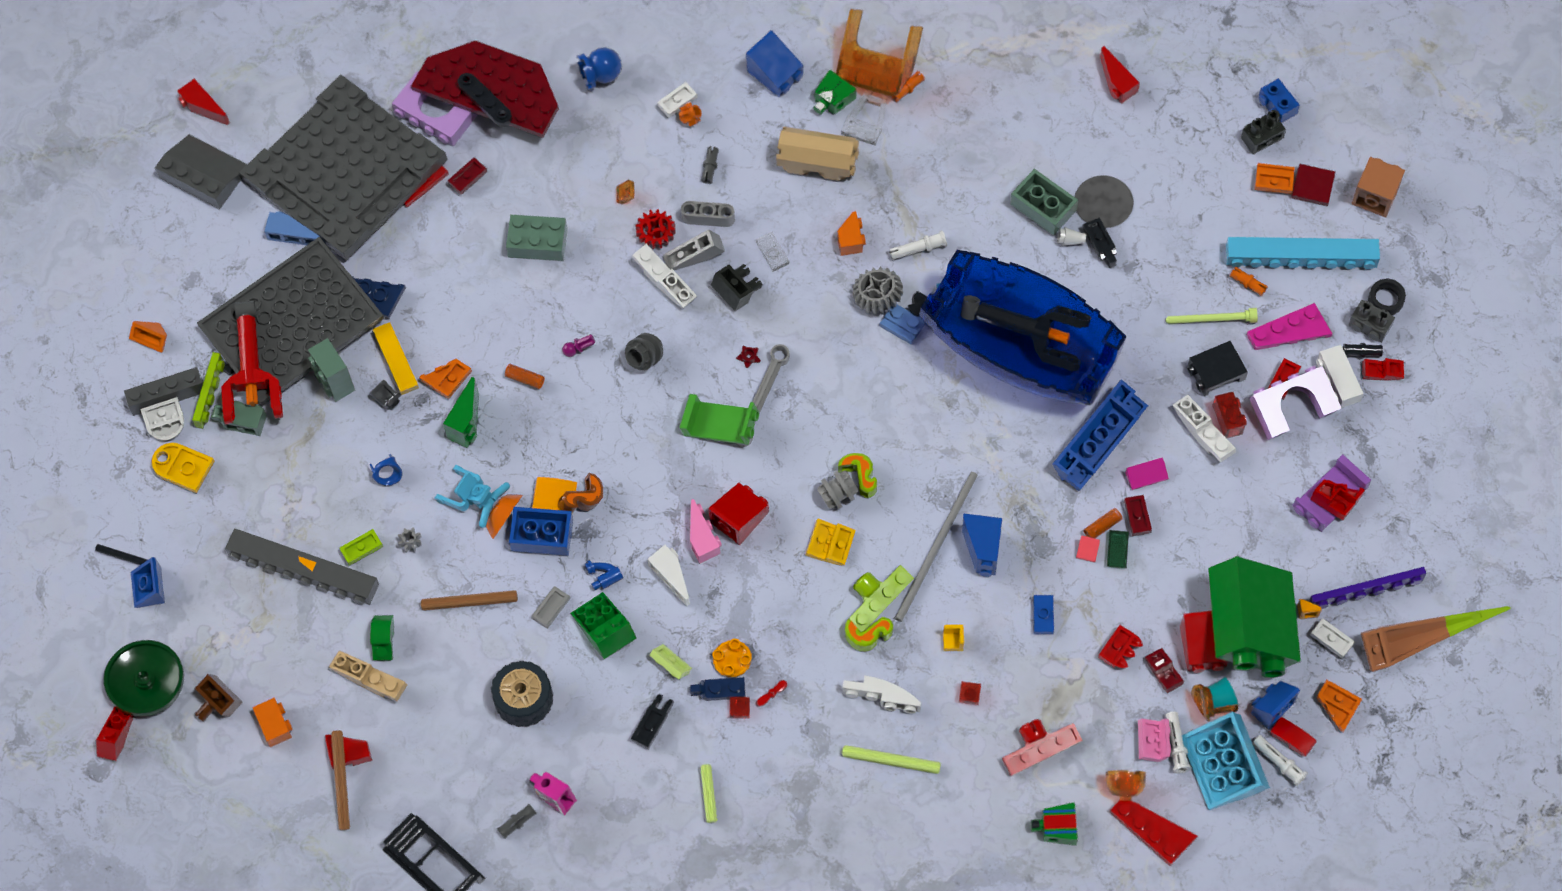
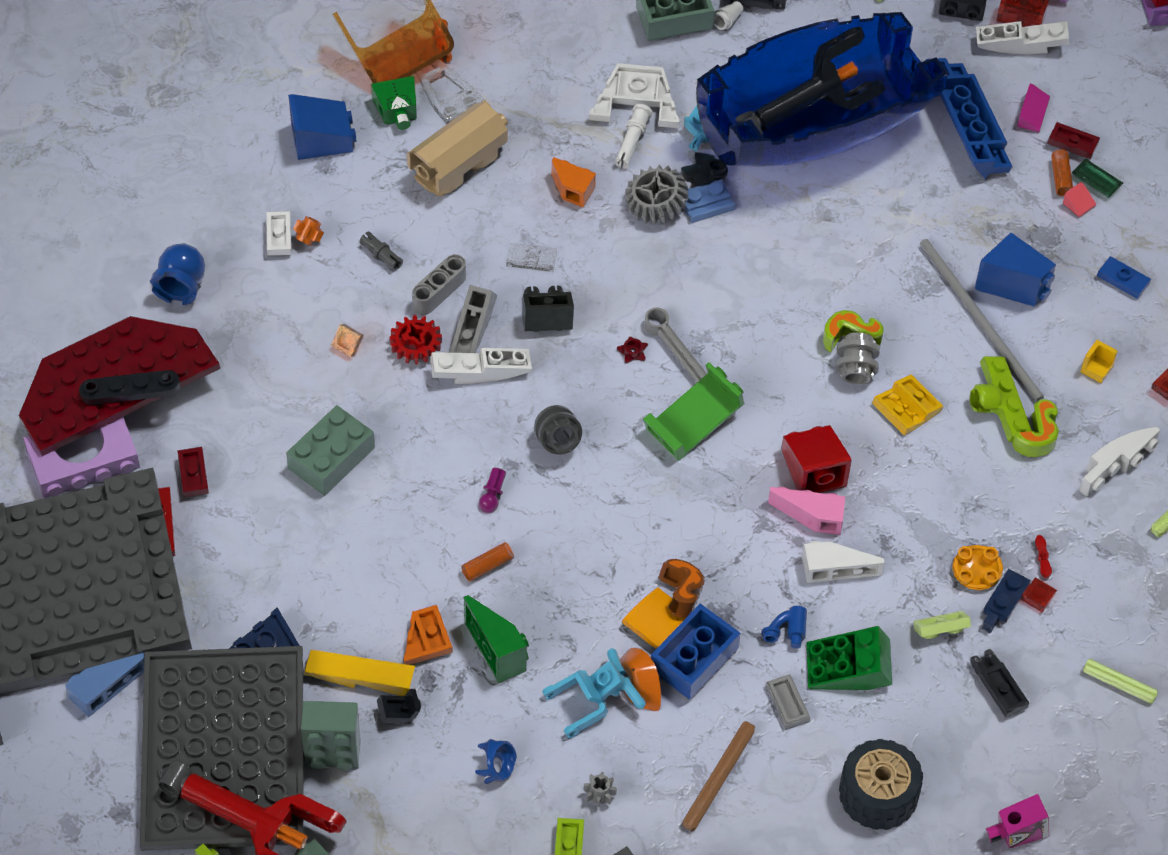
camera: 60 degrees left, 10 degrees down
(961, 220) = (634, 86): none -> white wing

